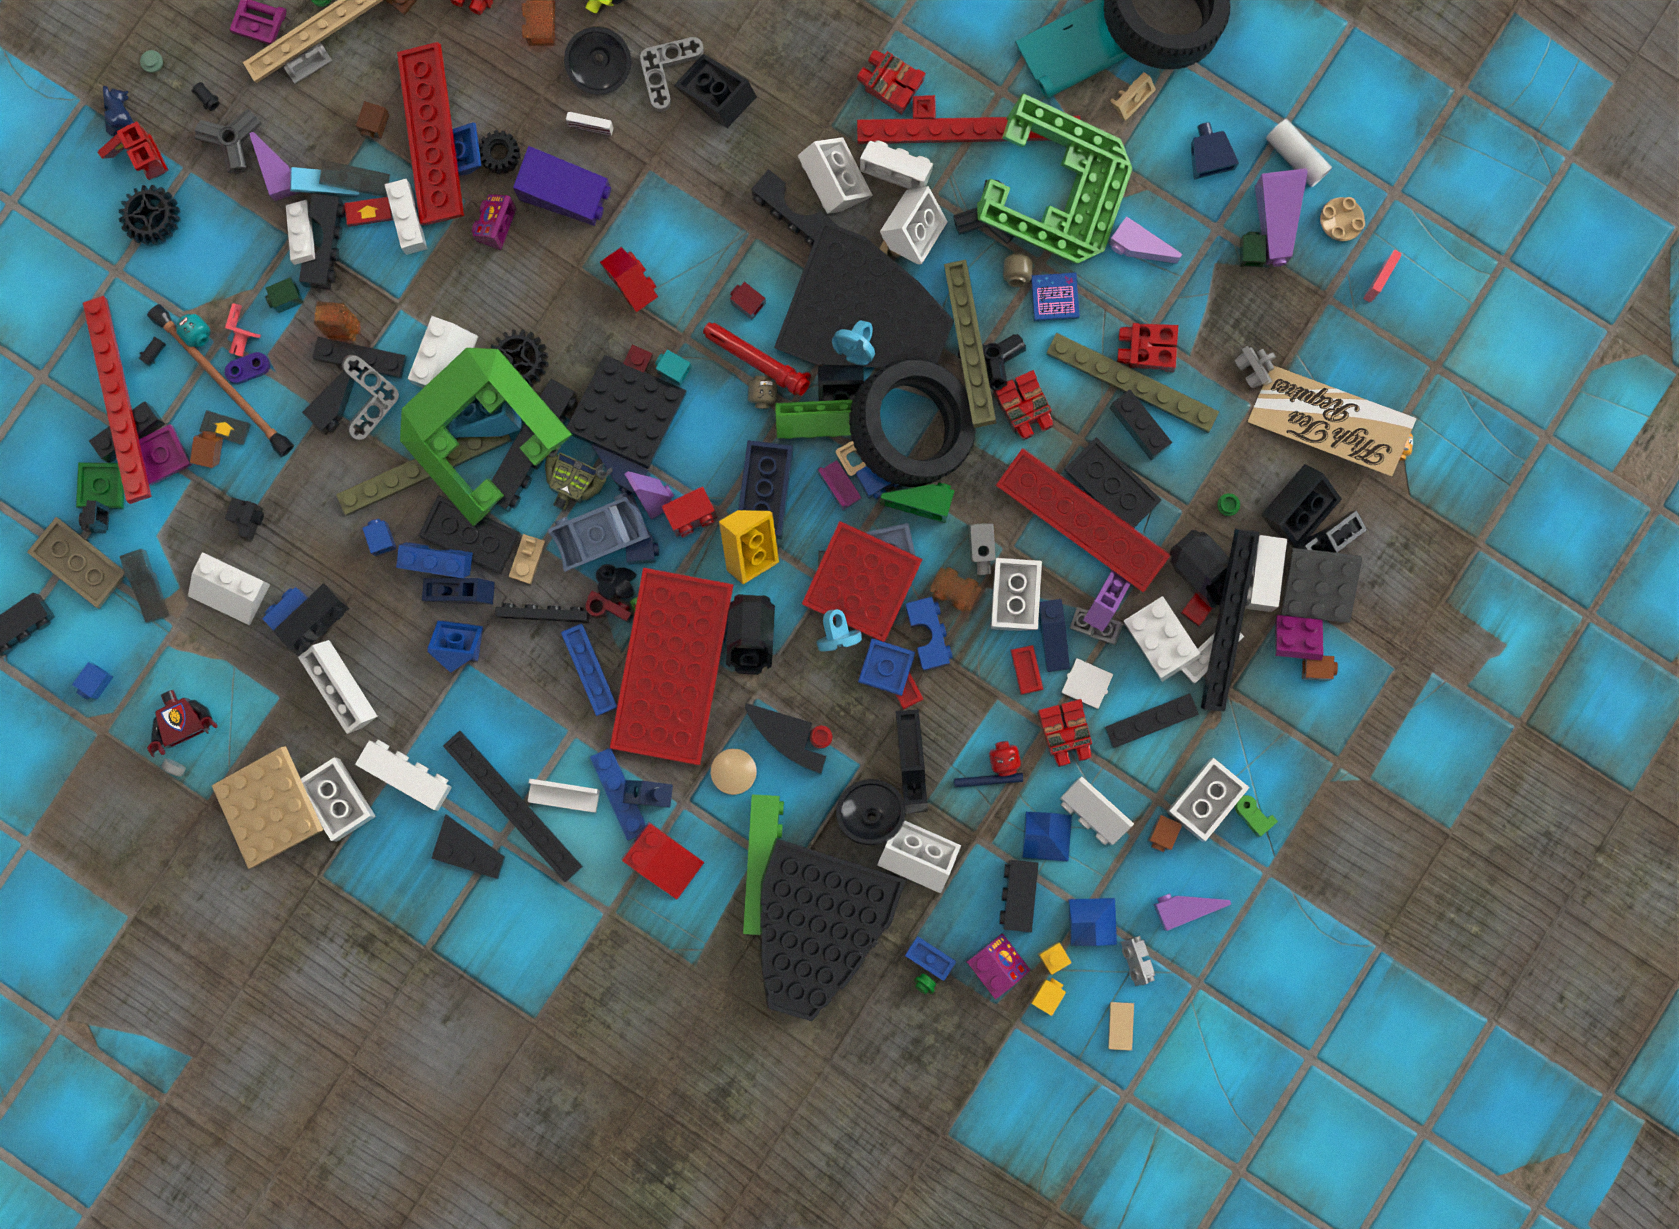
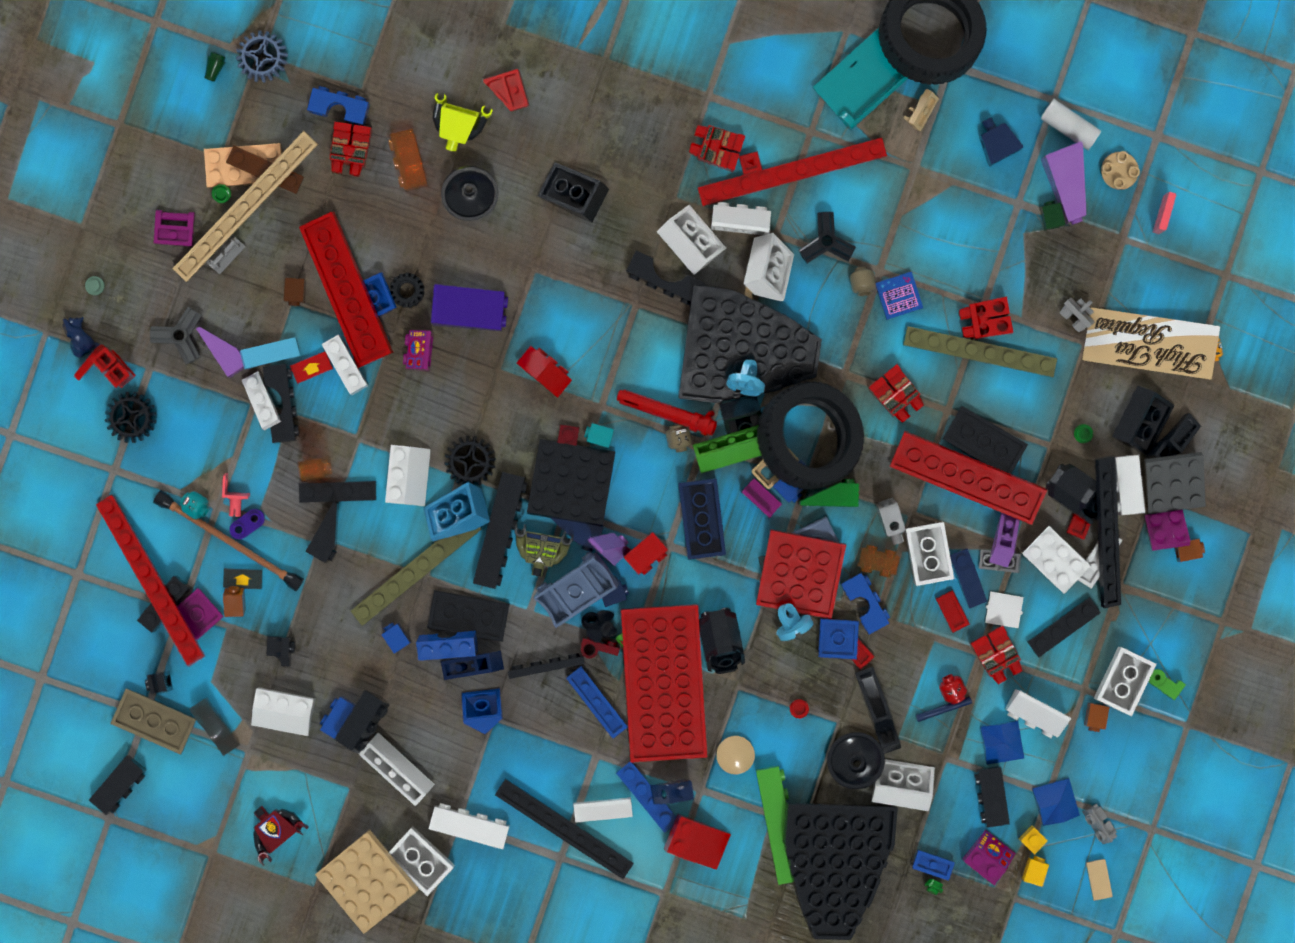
camera: 20 degrees left, 5 degrees up
(92, 681) = (193, 815): blue brick -> none
(100, 483) = (153, 652): green tile -> none
(152, 351) = (165, 530): black pin -> none
(173, 767) = (279, 868): light grey tile -> none
(205, 96) = (148, 304): black pin -> none
(283, 295) = (261, 456): dark green brick -> none
(353, 178) = (293, 344): clear smoke tile -> none
(376, 398) = (362, 524): light grey beam -> none
(465, 850) = (533, 873): black wing -> none
(493, 381) = (456, 488): bright green slope -> none
(527, 559) = (521, 624): tan plate -> none
(589, 123) = (476, 247): white tile -> none
(660, 60) = (522, 177): light grey beam -> none
(747, 300) = (645, 363): dark red brick -> none
(749, 543) = (701, 568): yellow slope -> none
(787, 736) = (772, 715): black slope -> none
(970, 344) = (840, 356): olive plate -> none
(997, 355) = (864, 370): black piece -> none
(1095, 194) = (910, 204): bright green slope -> none
(1139, 243) = (955, 233): lavender slope -> none
(1140, 425) = (996, 386): black brick -> none
(1181, 909) = (1125, 774): medium lavender slope -> none

